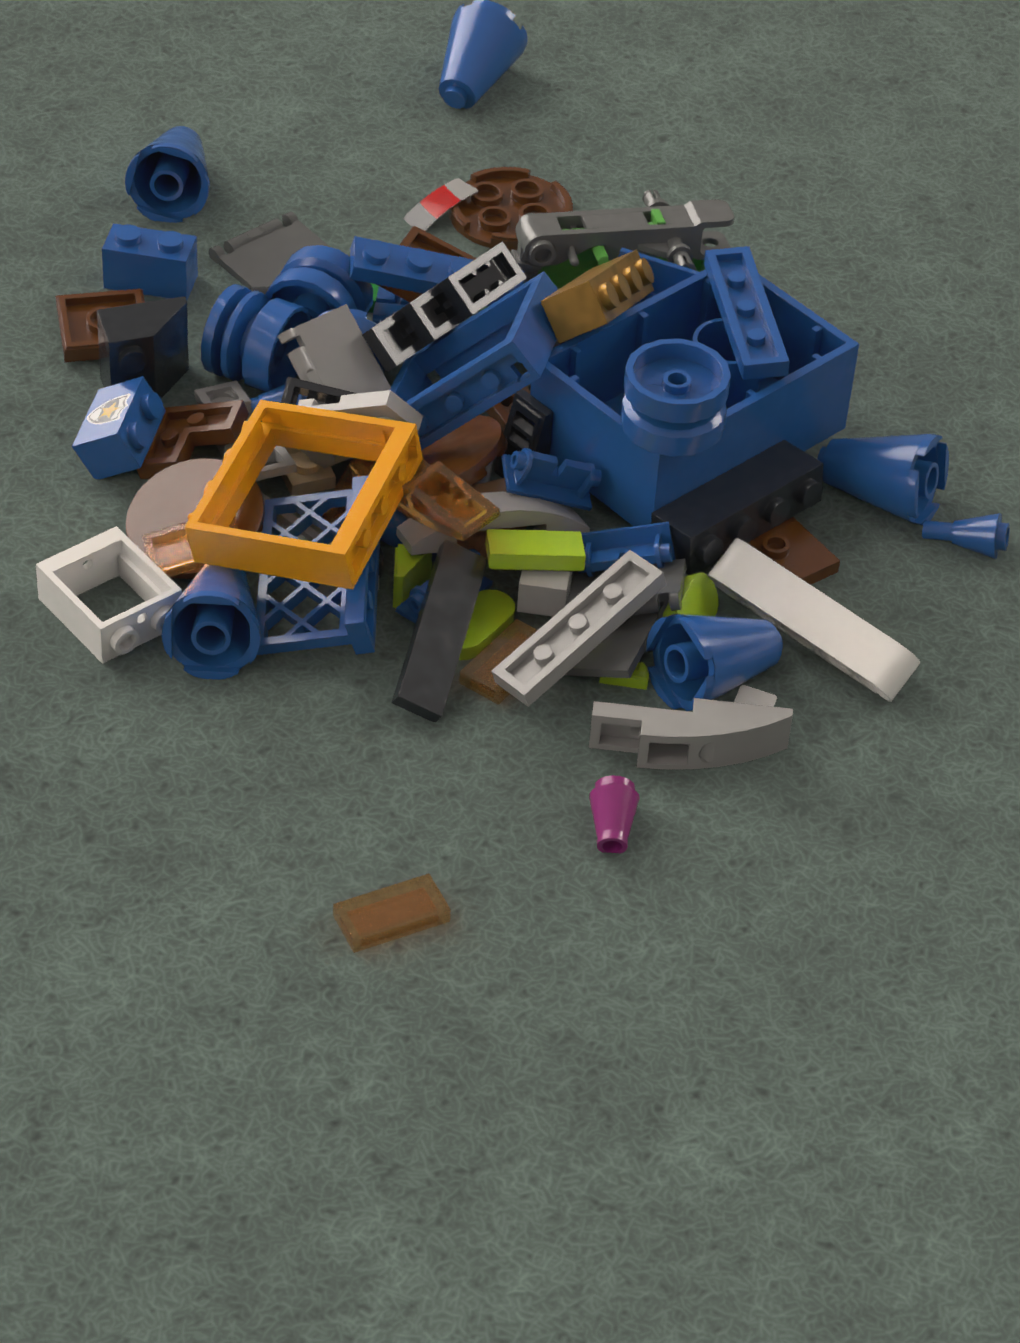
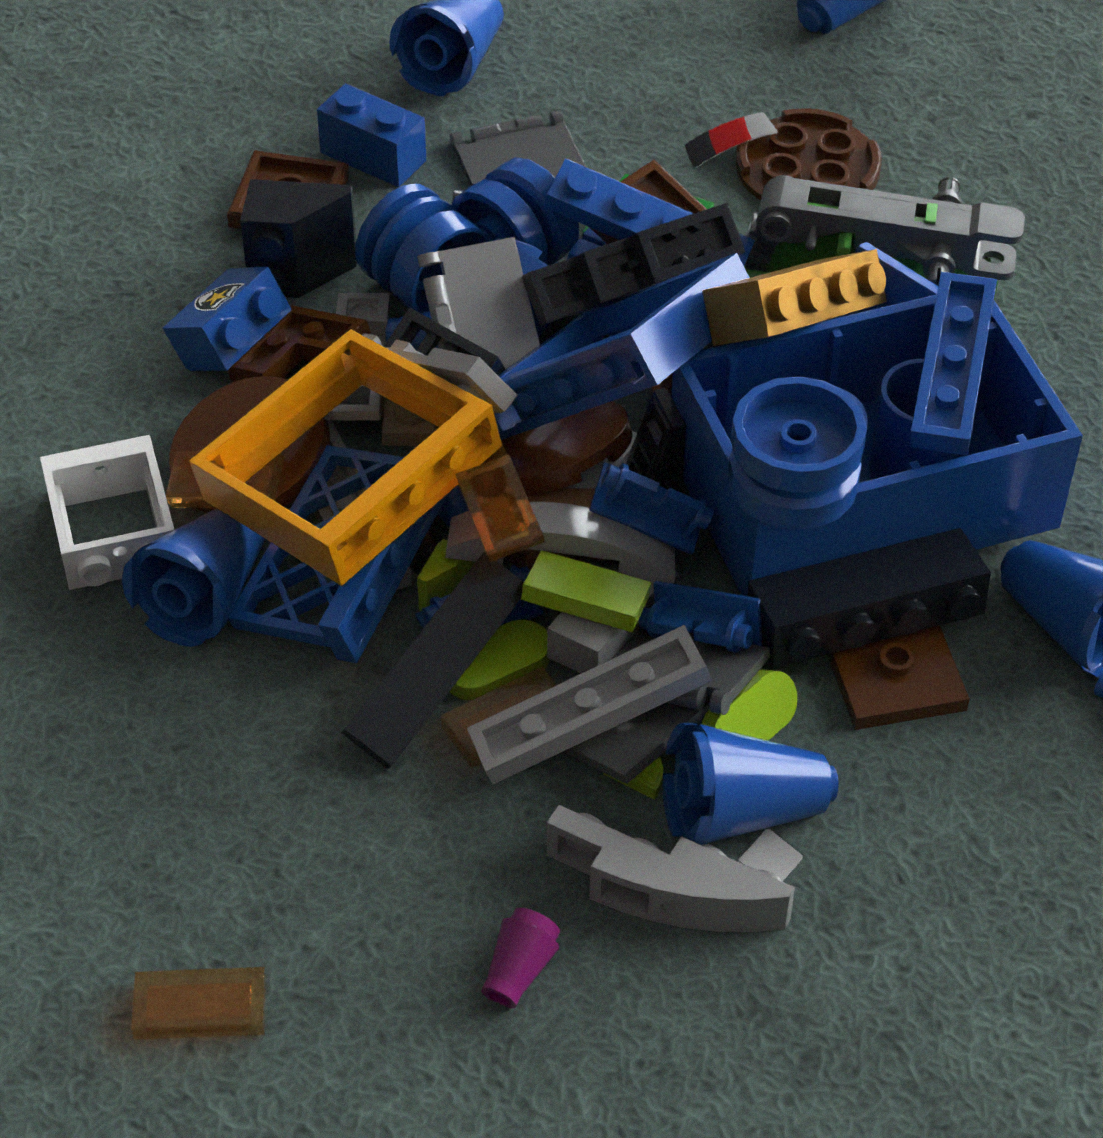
camera: 25 degrees right, 5 degrees up
(814, 619) = (890, 774): white beam -> none

